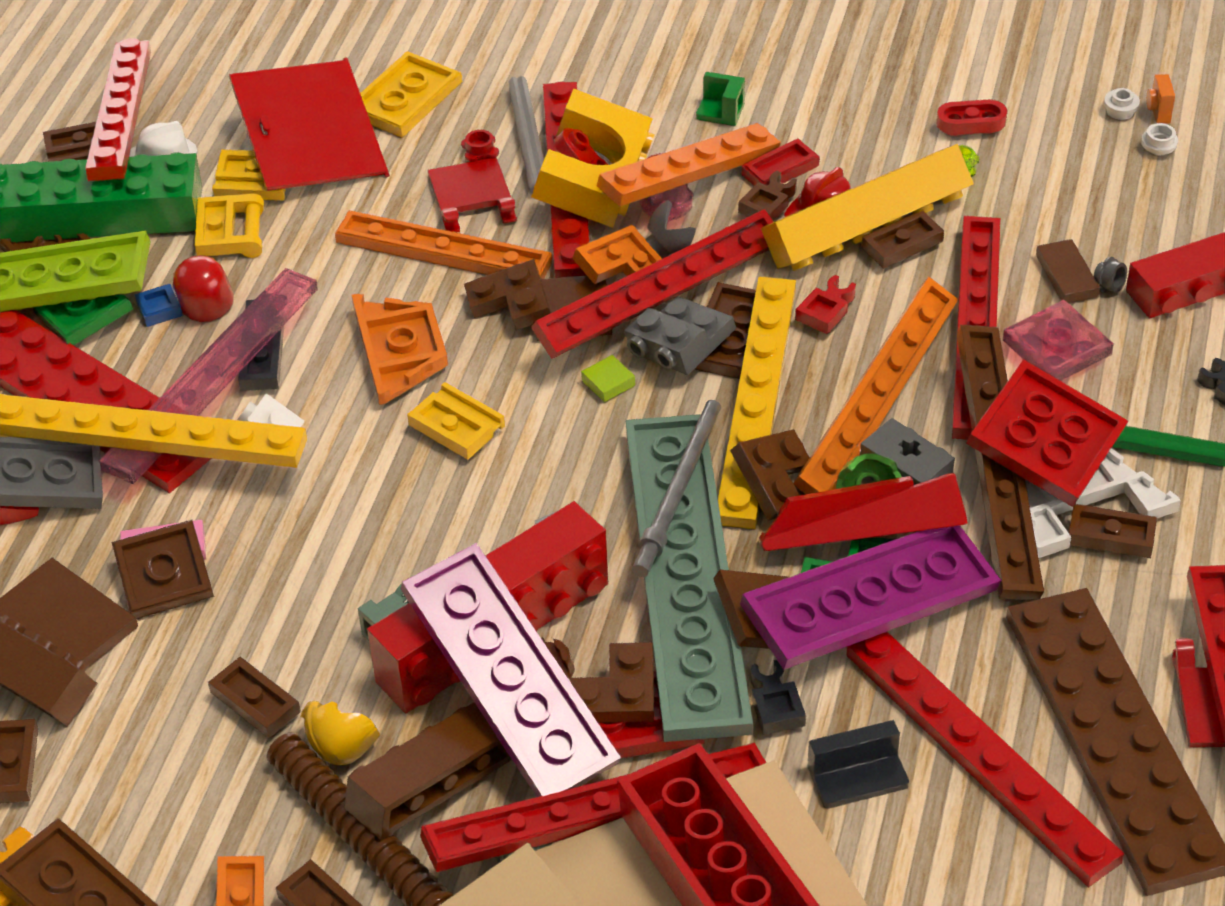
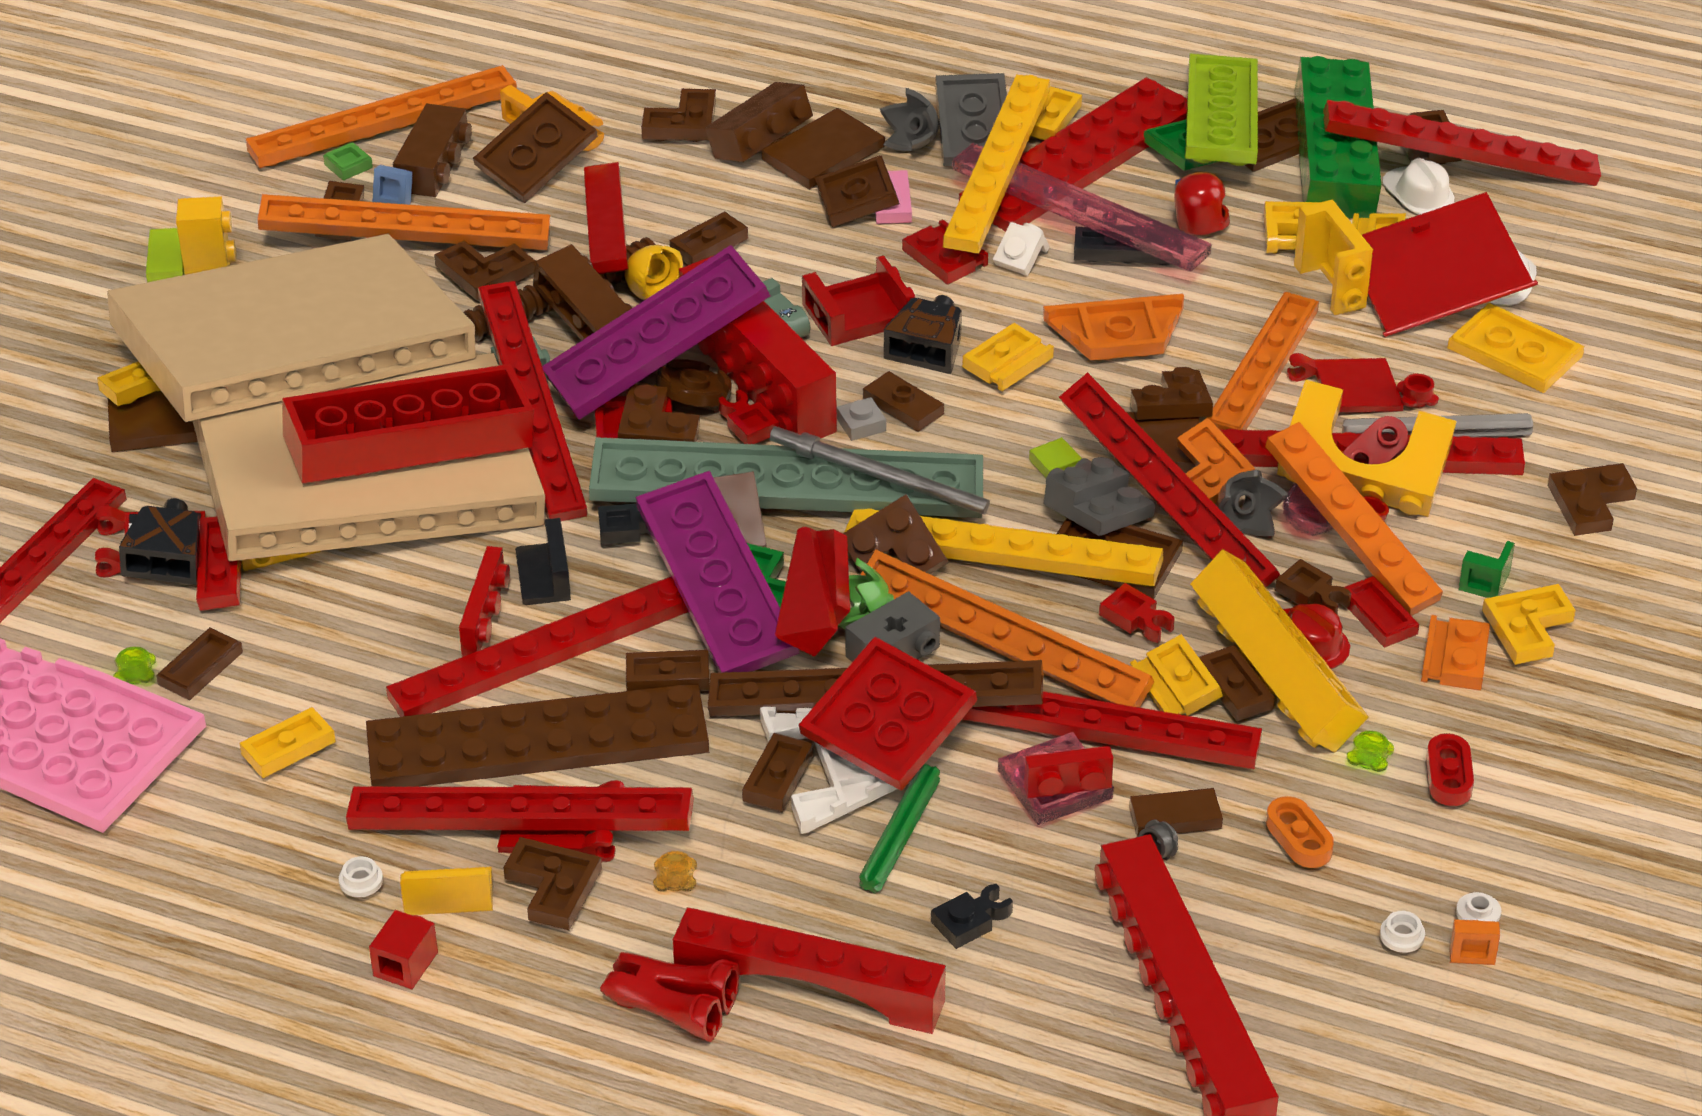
camera: 95 degrees right, 5 degrees down
(60, 519) = (913, 122): none -> dark grey piece
(226, 793) = (605, 218): none -> red tile
(265, 494) = (945, 263): none -> red plate
(305, 181) = (1336, 247): none -> yellow panel
(367, 547) = (857, 305): none -> red panel
(425, 482) = (925, 334): none -> torso
(529, 499) = (904, 401): none -> reddish brown plate
(585, 615) = (746, 421): none -> red plate
(606, 57) = (1586, 491): none -> reddish brown plate
(779, 84) = (1522, 619): none -> yellow plate
(822, 121) = (1456, 652): none -> orange plate
(902, 272) = (1179, 678): none -> yellow plate
(938, 807) = (483, 601): none -> red plate
(997, 634) = (667, 668): none -> reddish brown plate
(1071, 195) = (1299, 832): none -> orange plate
(1077, 313) = (1068, 771): none -> red plate

